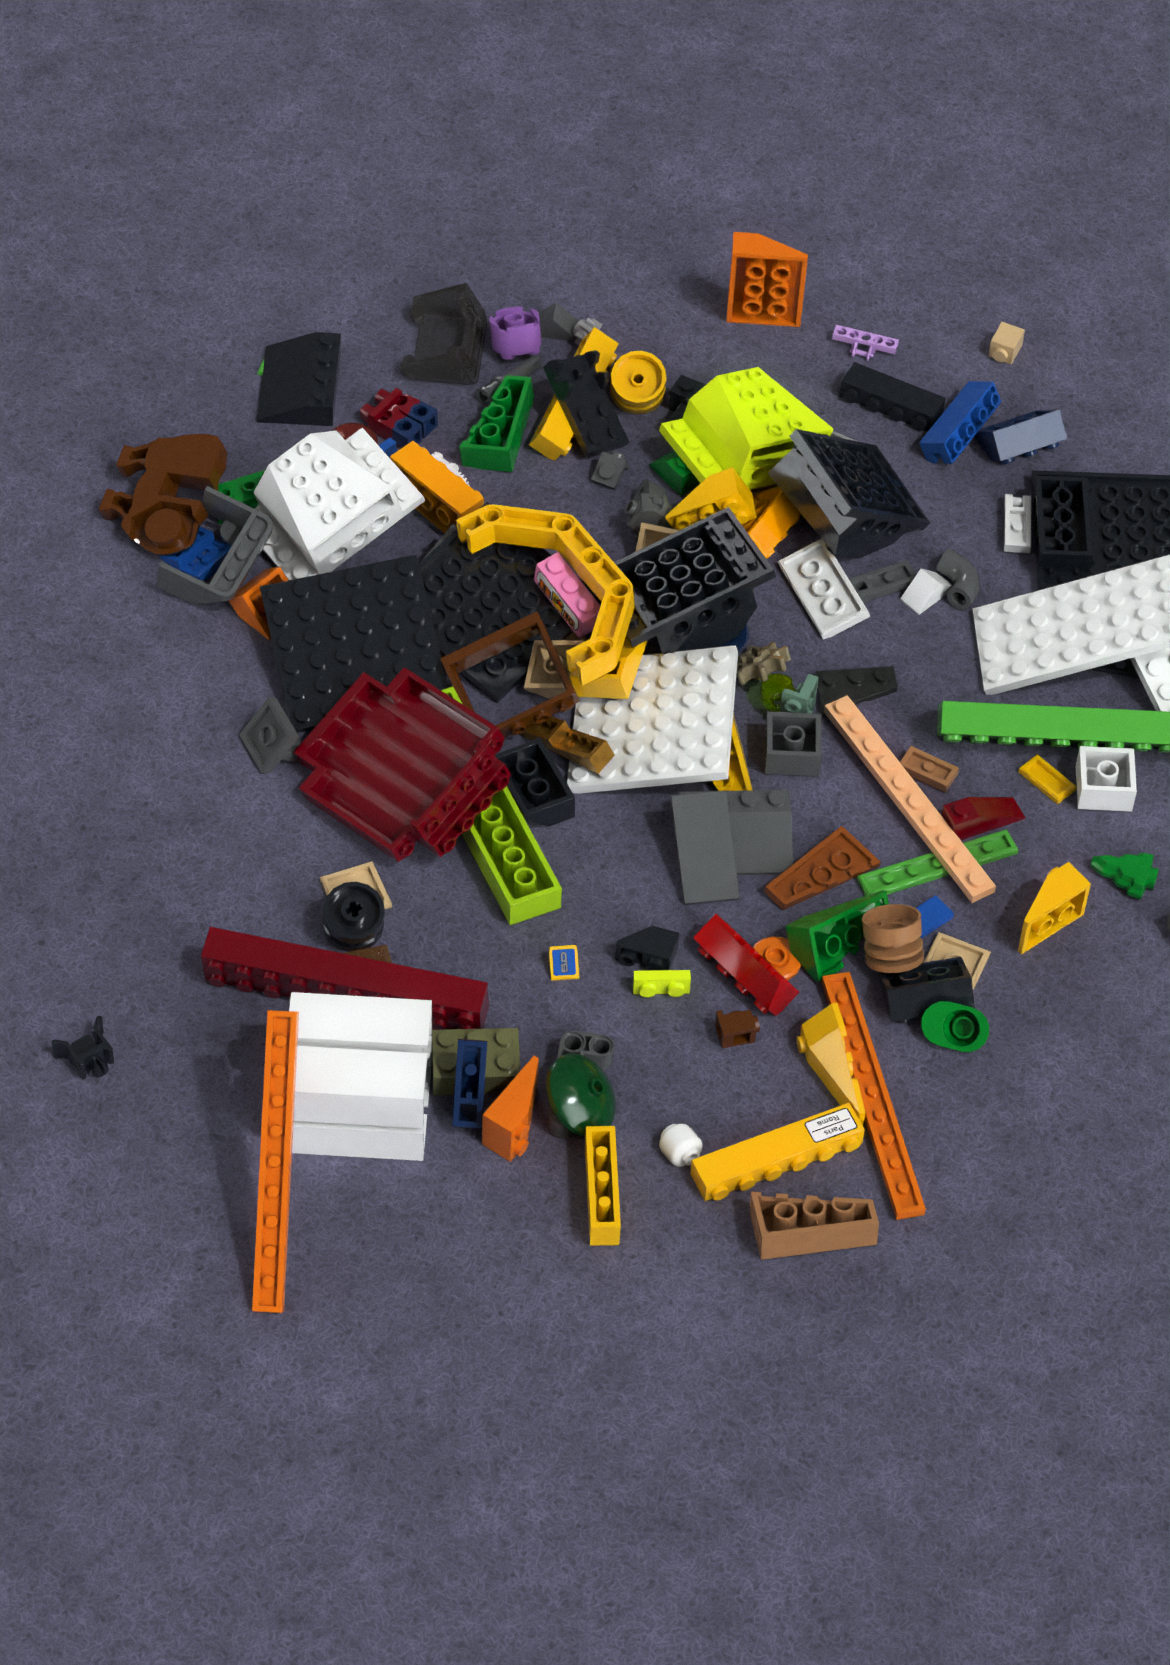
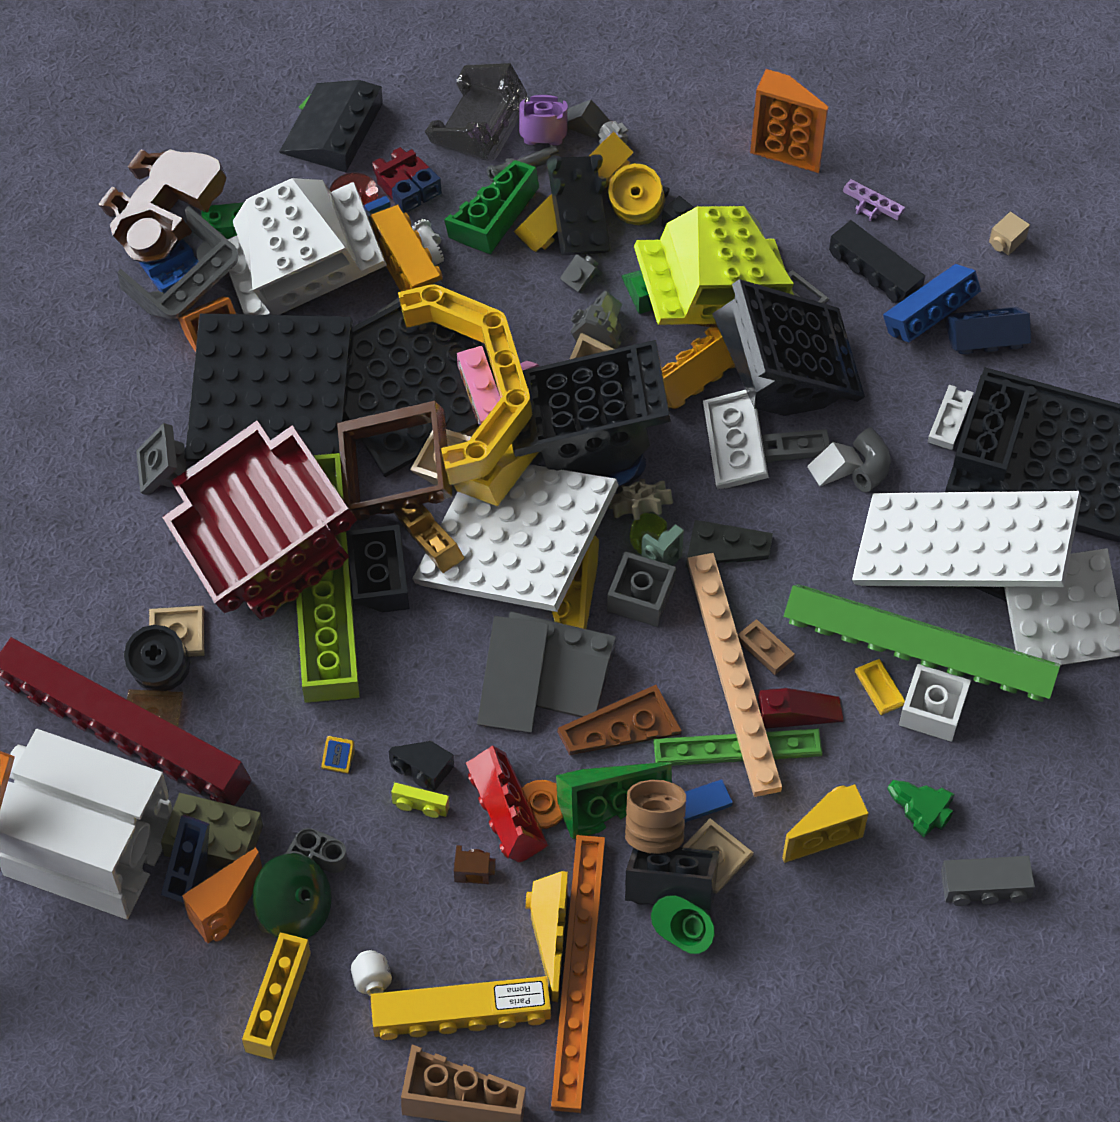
camera: 20 degrees right, 5 degrees up
(711, 496) = (659, 322): yellow slope -> none

